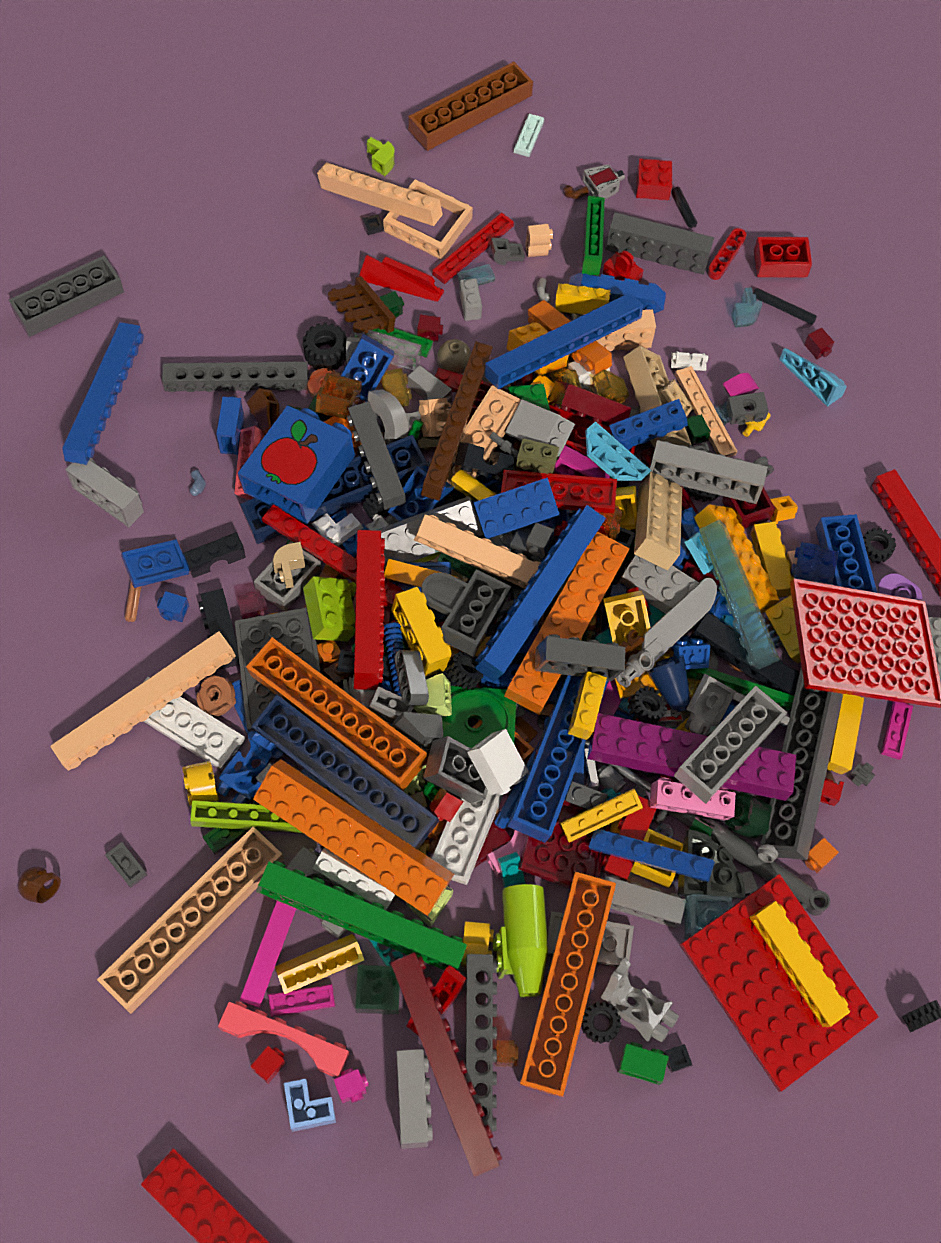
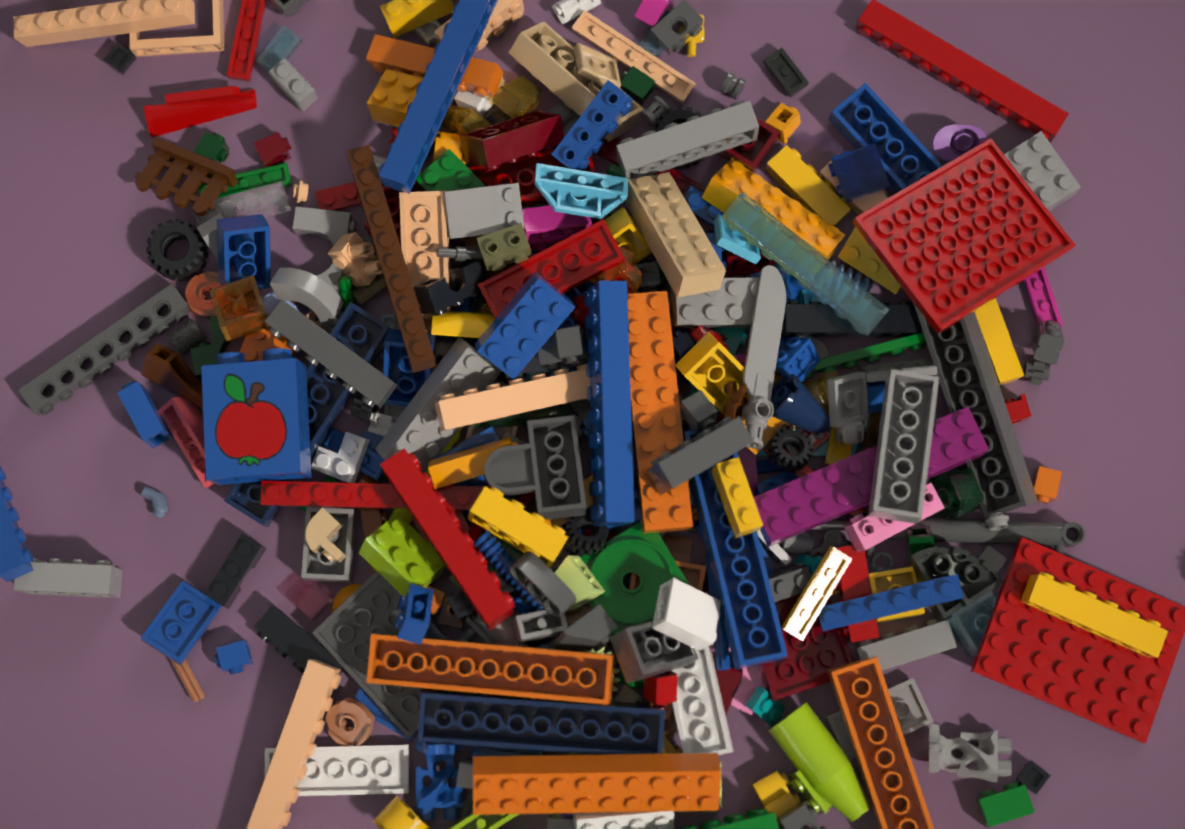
camera: 25 degrees left, 15 degrees up
(292, 398) = (186, 337): none -> dark grey piece
(310, 640) = (414, 614): none -> blue brick
(395, 383) = (287, 248): clear yellow brick -> none
(429, 361) = (300, 191): none -> light nougat plate
(453, 356) = (323, 167): dark tan cylinder -> none
(541, 290) = (360, 19): light grey arm -> none
(599, 631) = (698, 412): none -> dark grey brick
(614, 1022) = (956, 792): black tyre -> none
(804, 481) = (785, 72): none -> pearl dark grey plate
(882, 537) = (906, 86): black tyre -> none
(883, 757) = (1048, 342): none -> dark grey brick

